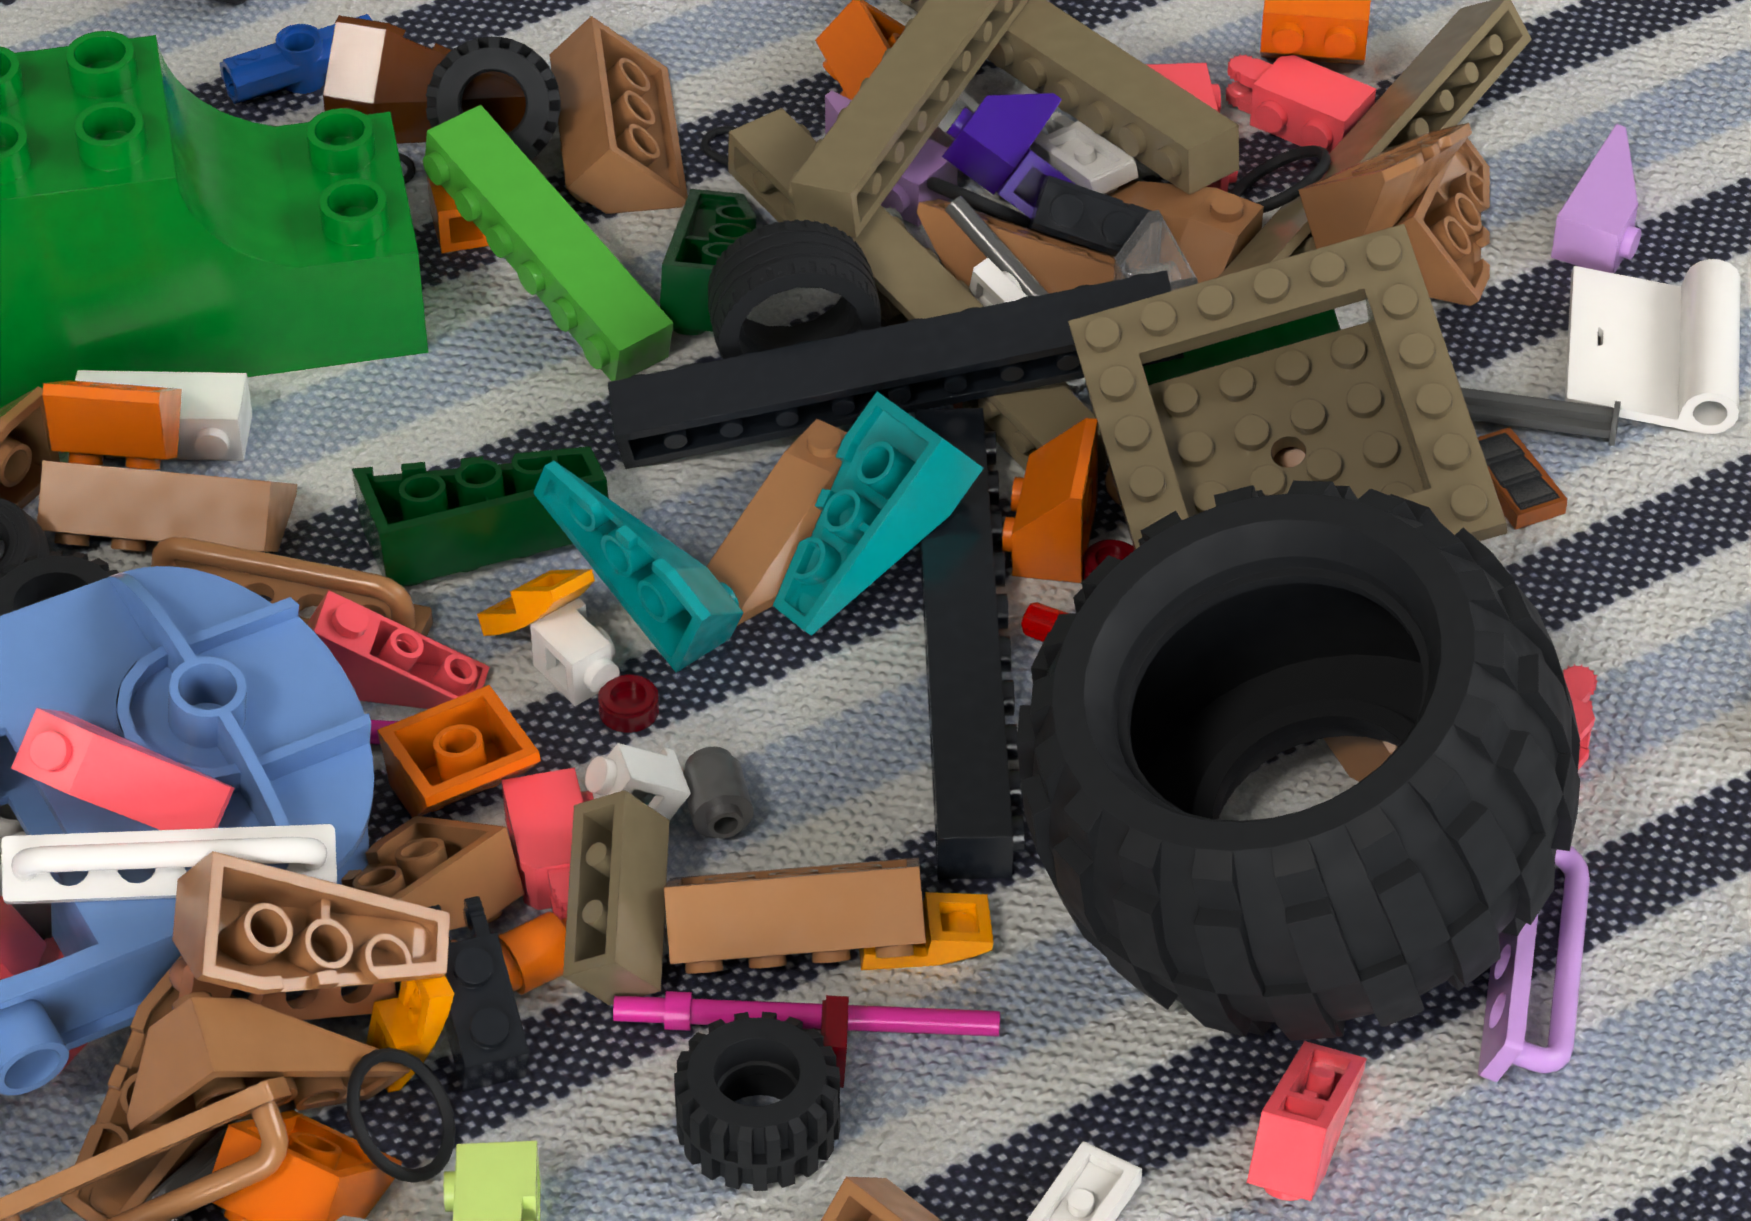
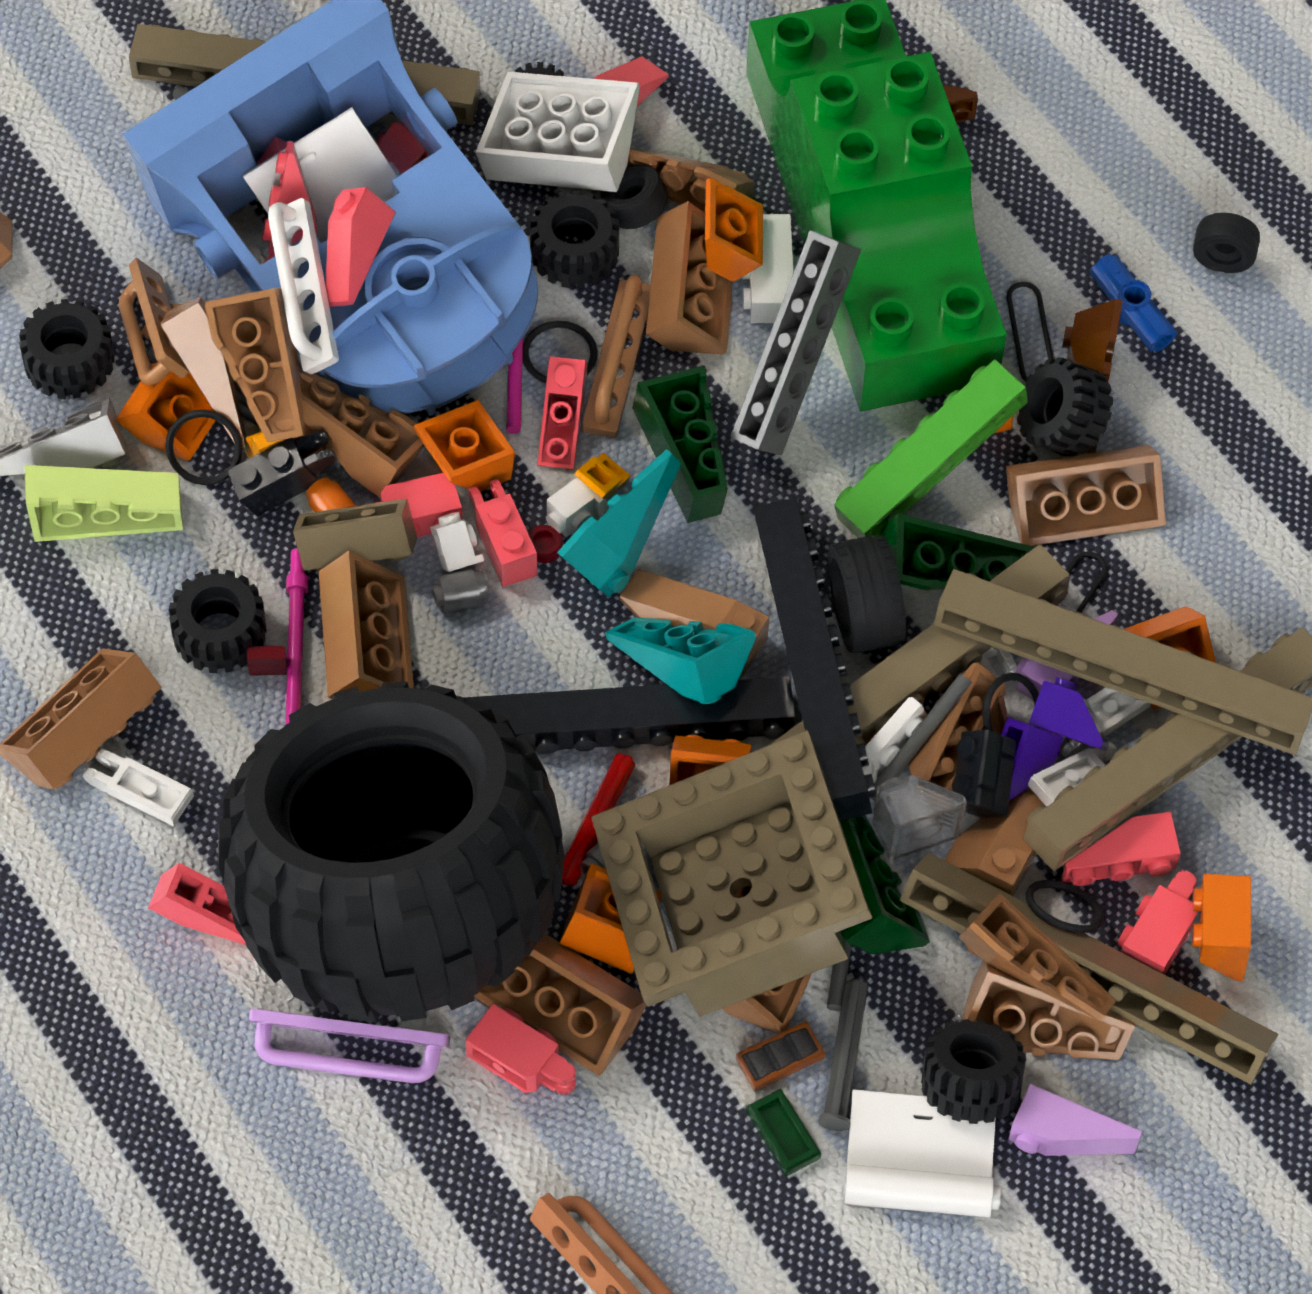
camera: 85 degrees right, 15 degrees up
(365, 322) = (795, 343): none -> dark grey brick
(636, 714) = (504, 535): none -> coral hinge
(1544, 265) = (973, 1071): none -> black tyre
(1629, 481) = (783, 1132): none -> dark green tile

